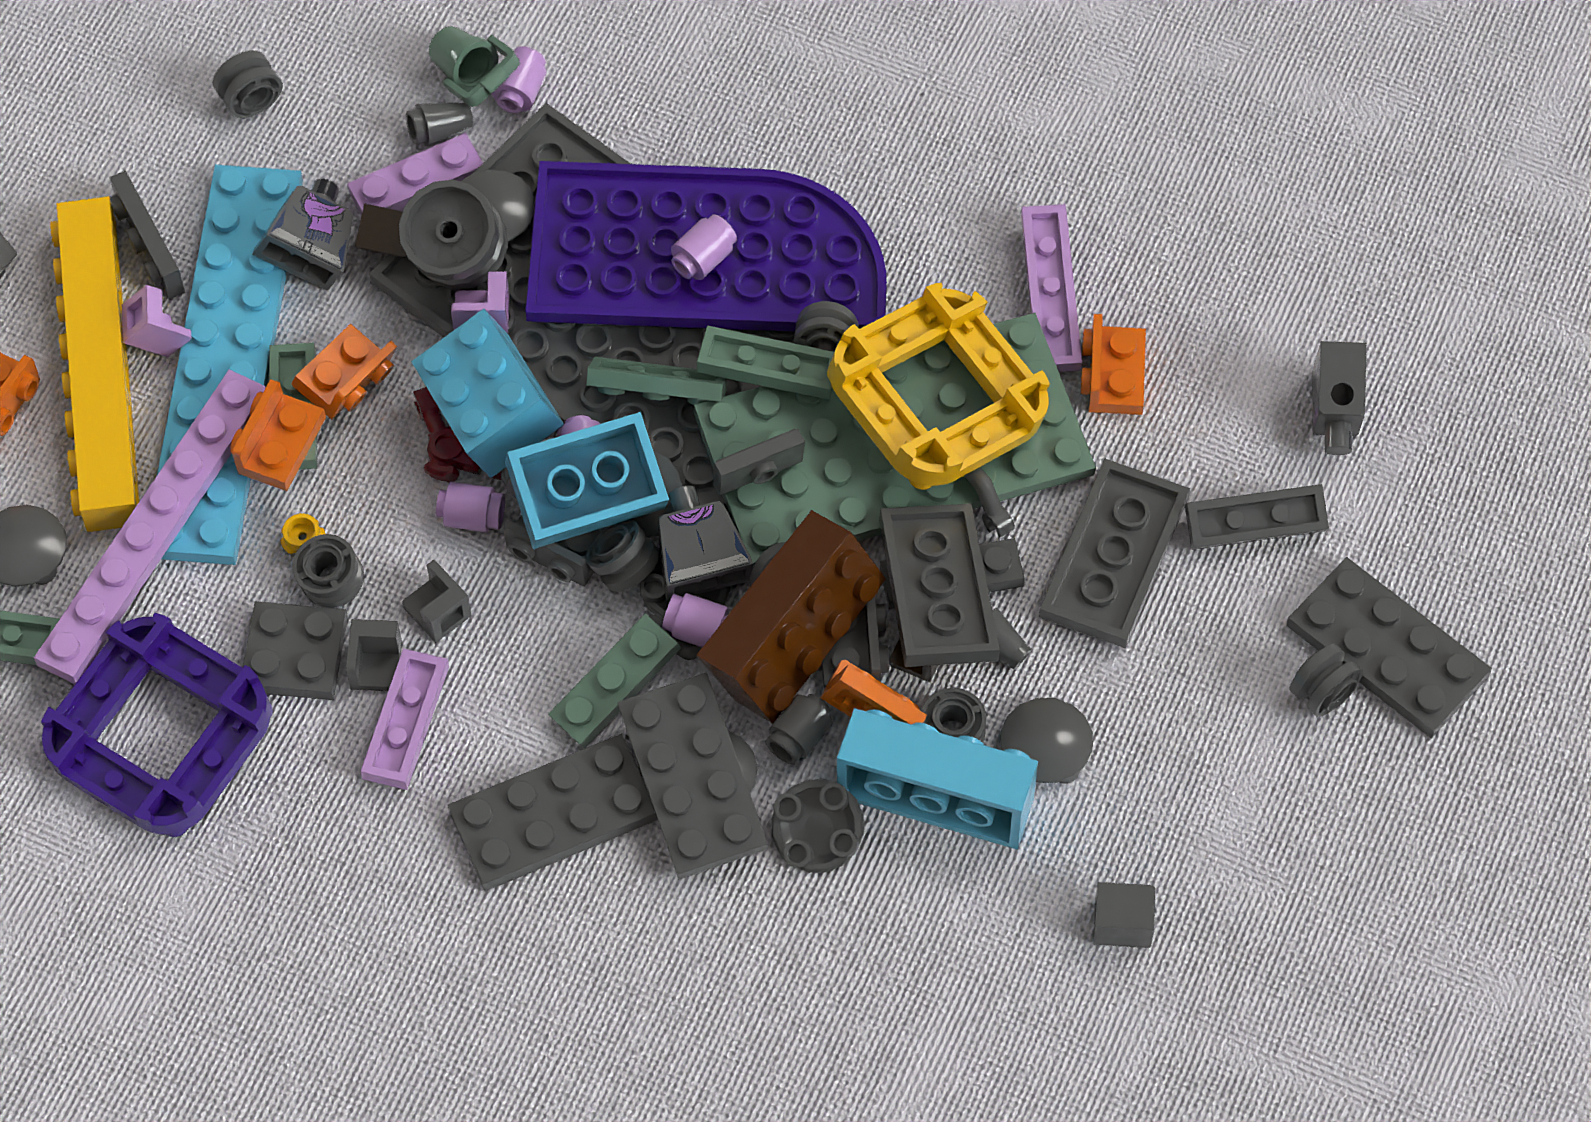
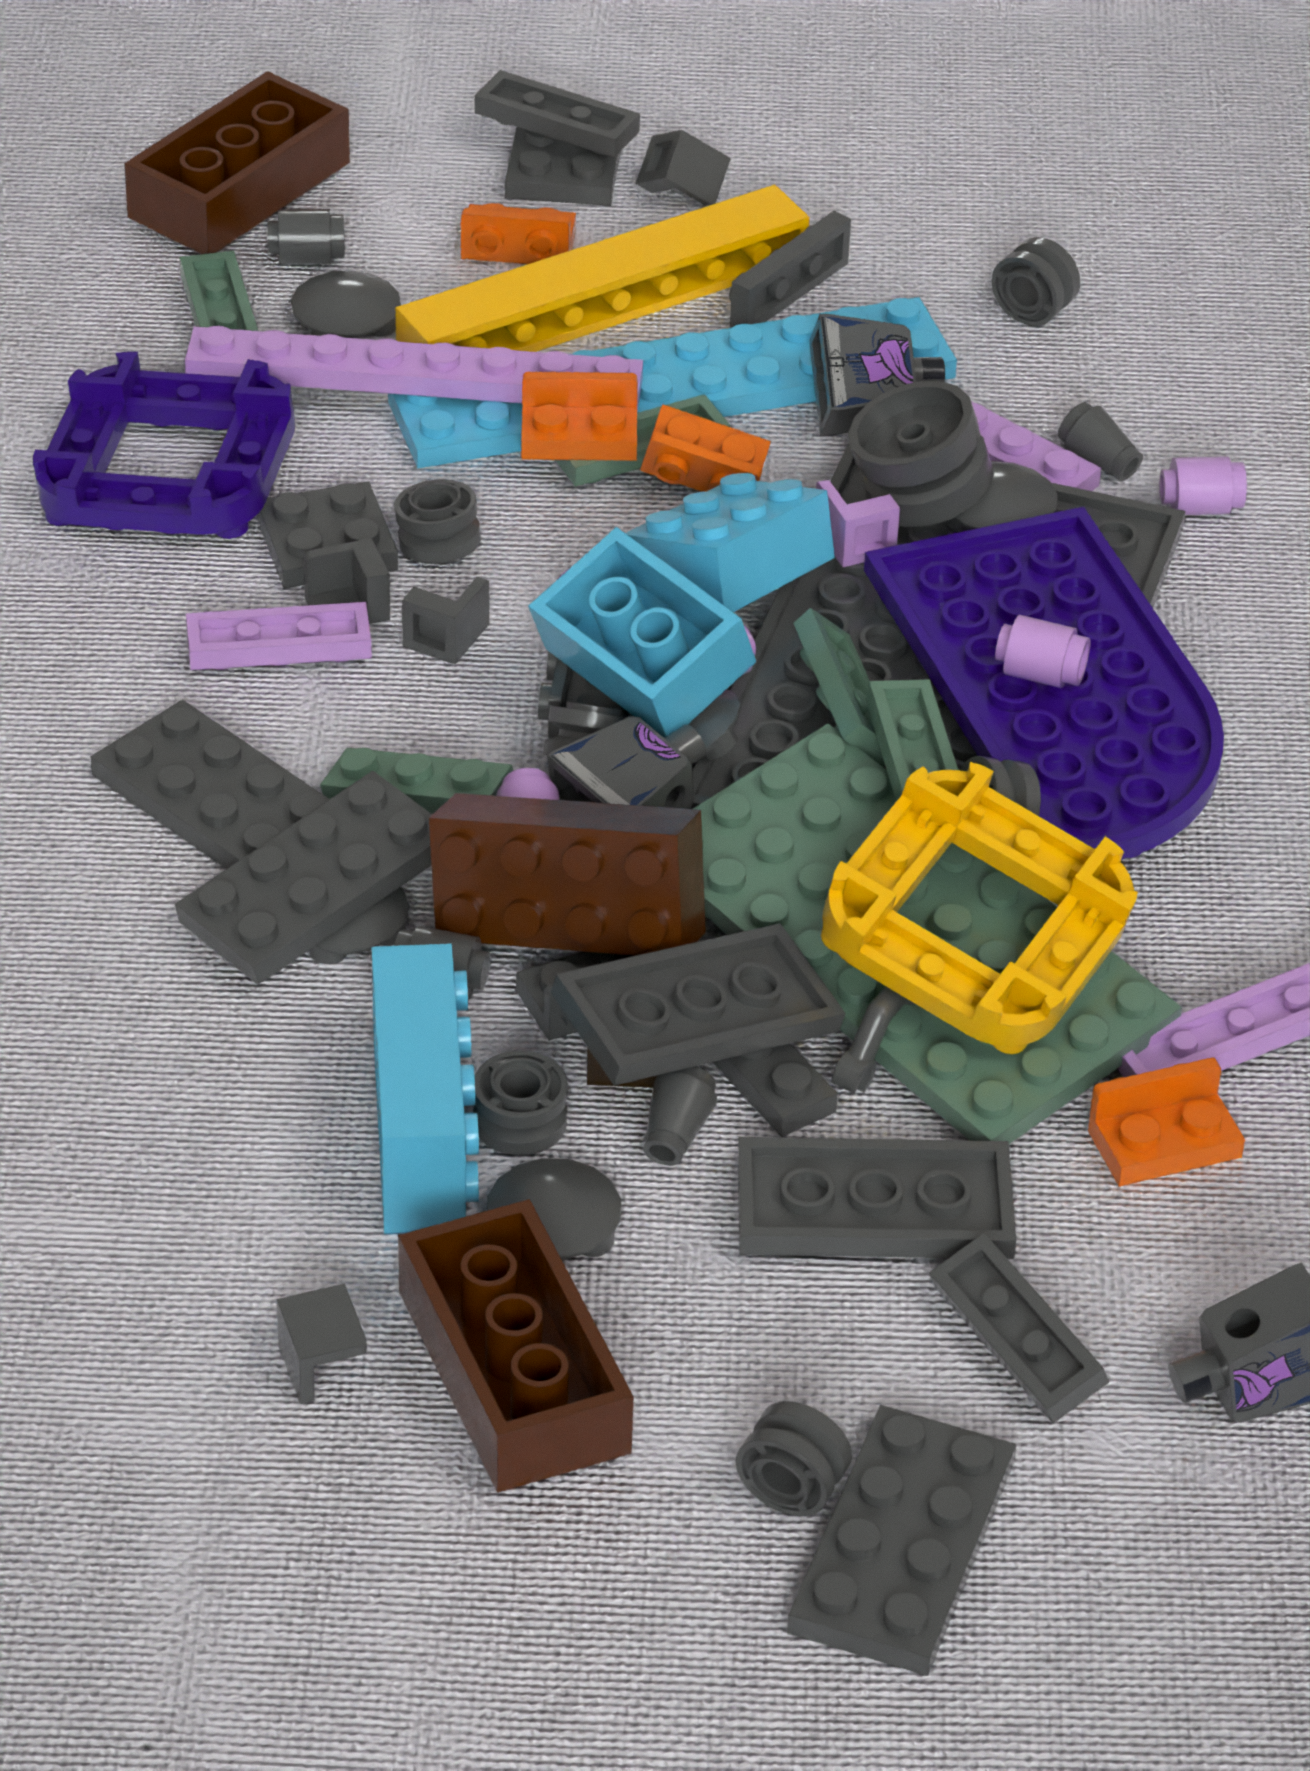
camera: 65 degrees right, 20 degrees down
(148, 327) = (669, 298): lavender panel -> none
(296, 526) = (487, 491): yellow plate -> none
(471, 63) = (1188, 428): sand green piece -> none
(758, 462) = (766, 780): dark grey plate -> none
(817, 825) = (310, 1017): dark grey dish -> none
(858, 689) = (509, 997): orange bracket -> none
(1178, 801) = (515, 1345): none -> reddish brown brick

